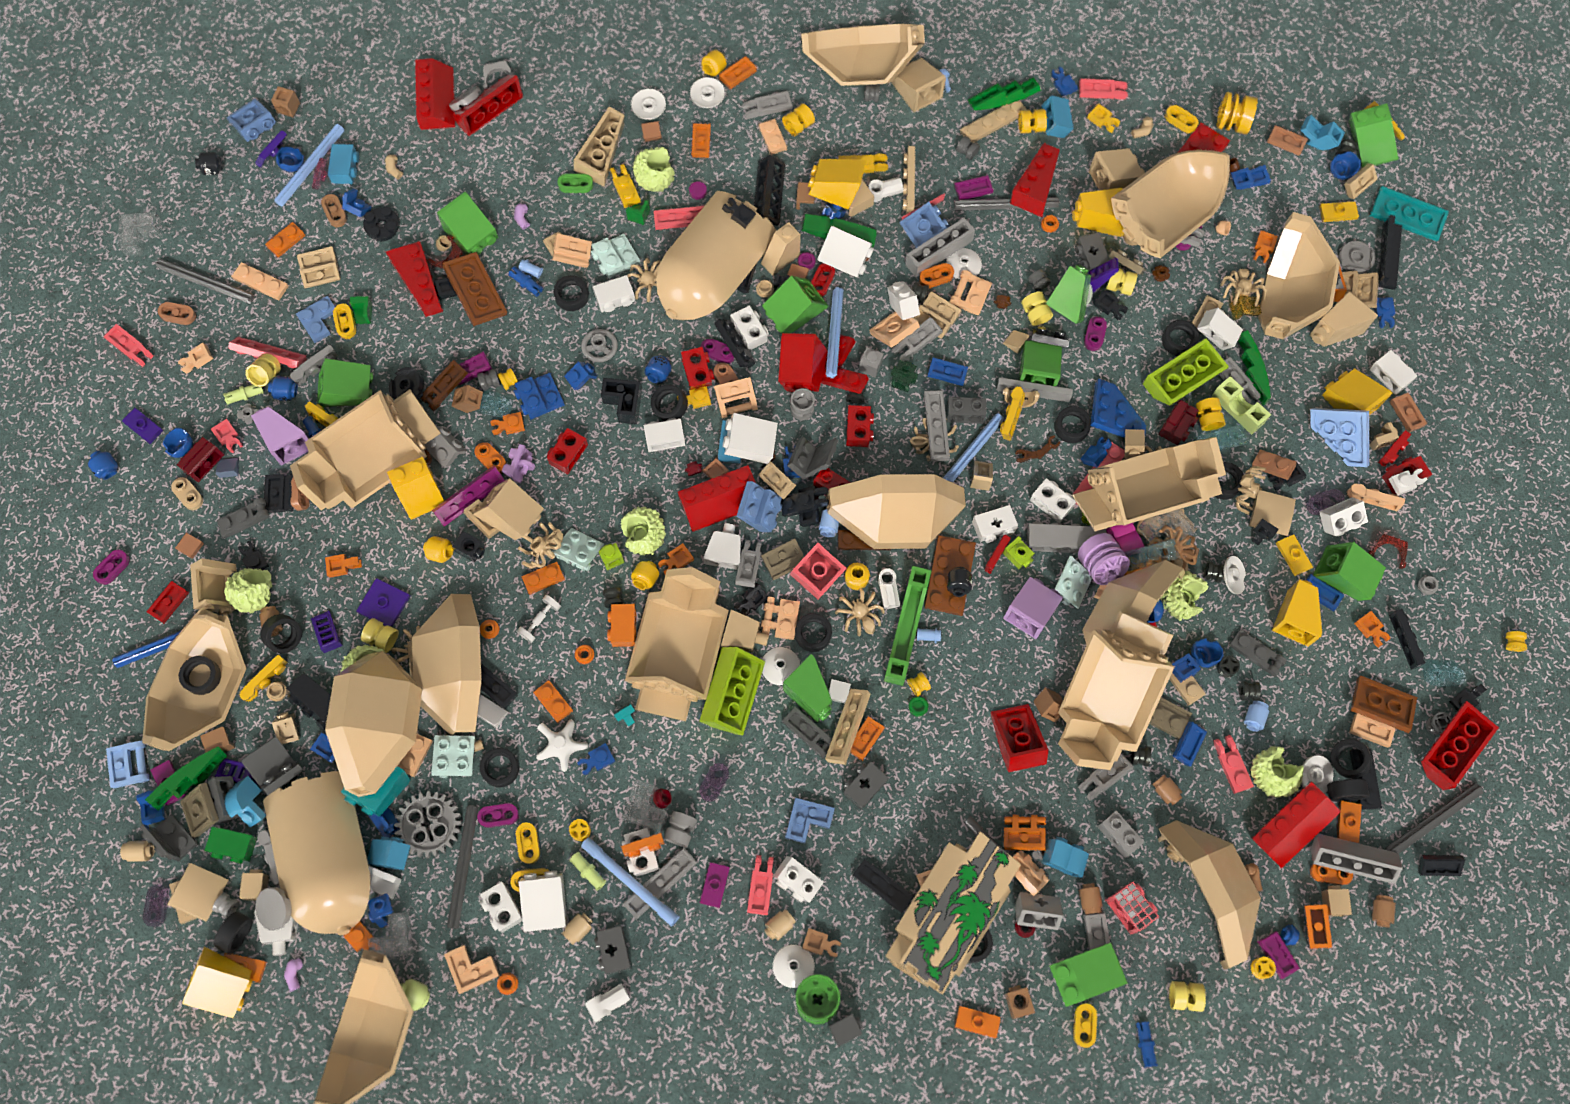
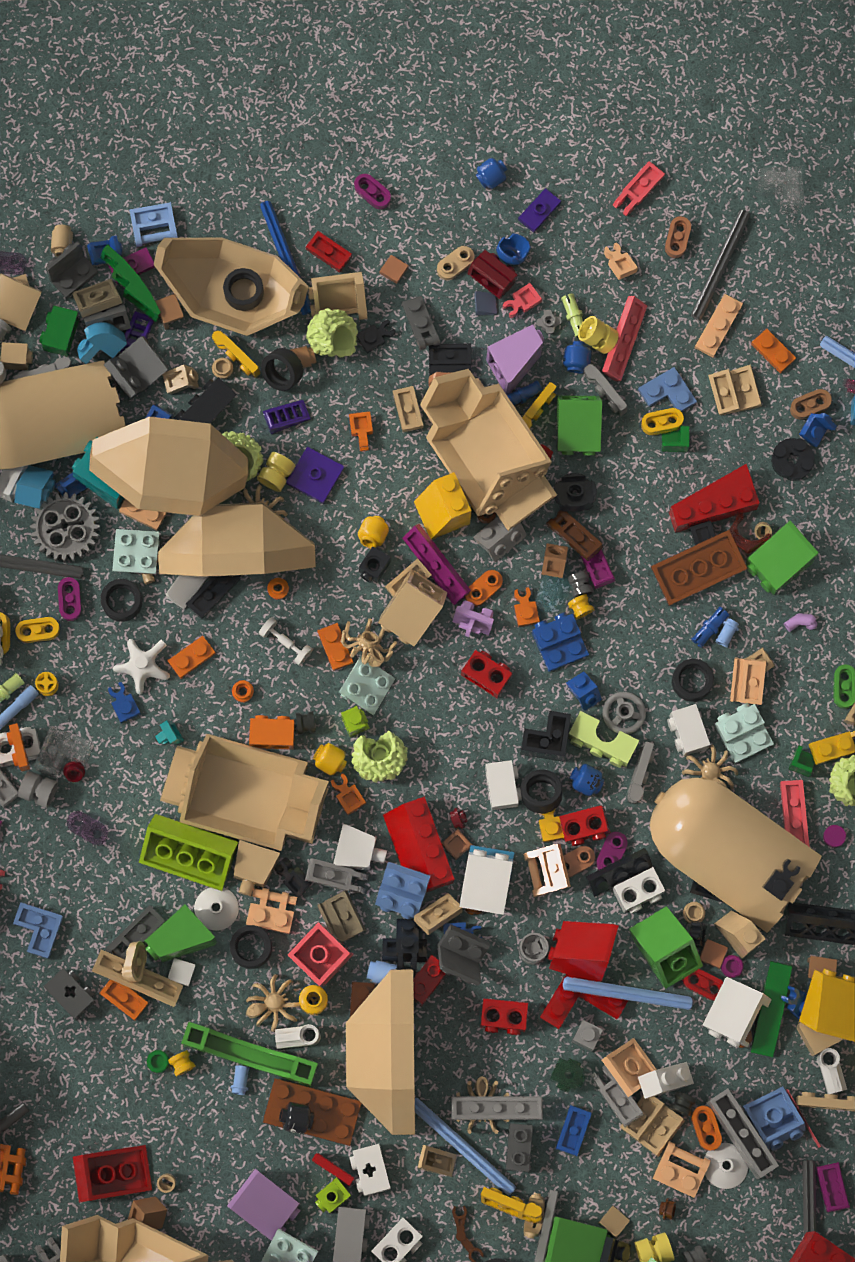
camera: 90 degrees right, 5 degrees up
(324, 526) = (408, 409): none -> tan plate
(630, 344) = (584, 734): none -> yellowish green arch
(650, 330) = (640, 774): none -> light grey hinge
(841, 726) = (135, 962): none -> tan plate
(1026, 691) = (165, 1187): none -> tan hinge

